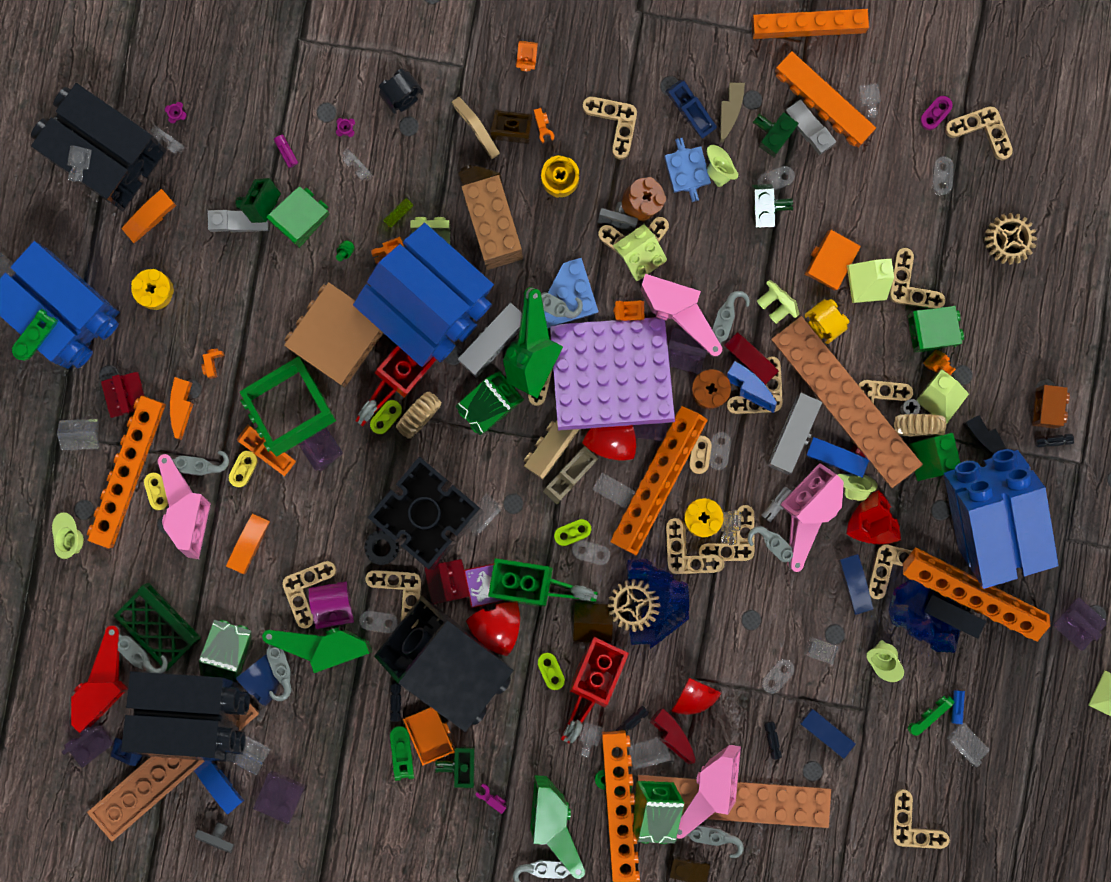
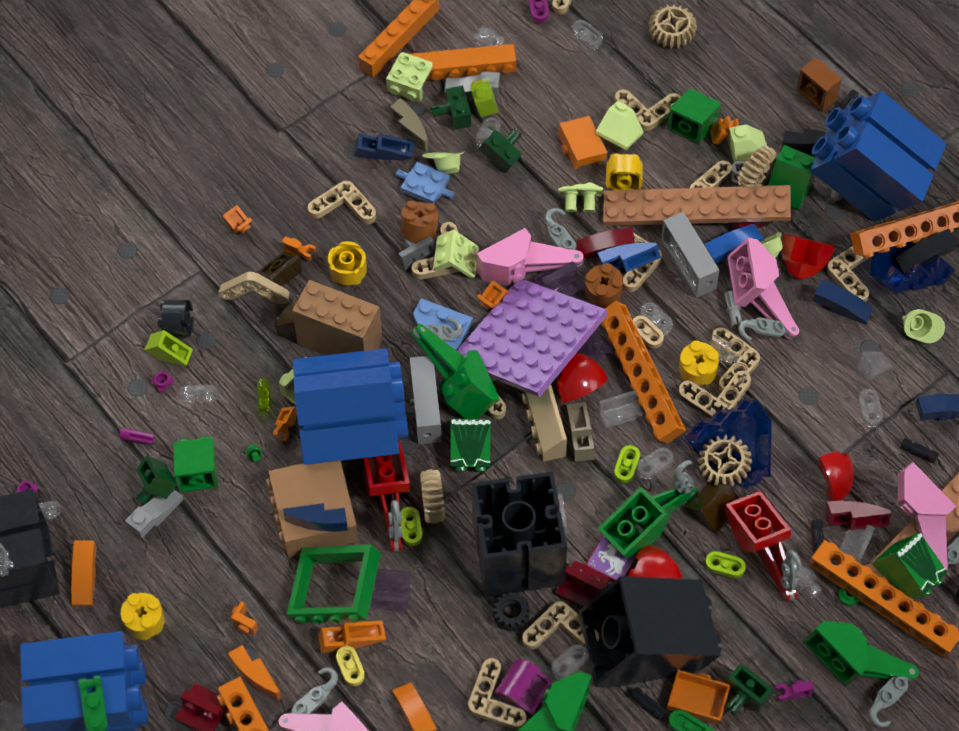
camera: 50 degrees left, 25 degrees down
(318, 354) = (317, 518): none -> dark blue slope
(373, 107) = (168, 348): none -> lime slope
(773, 70) = (408, 76): none -> yellowish green bracket
(803, 147) = (484, 97): none -> lime slope

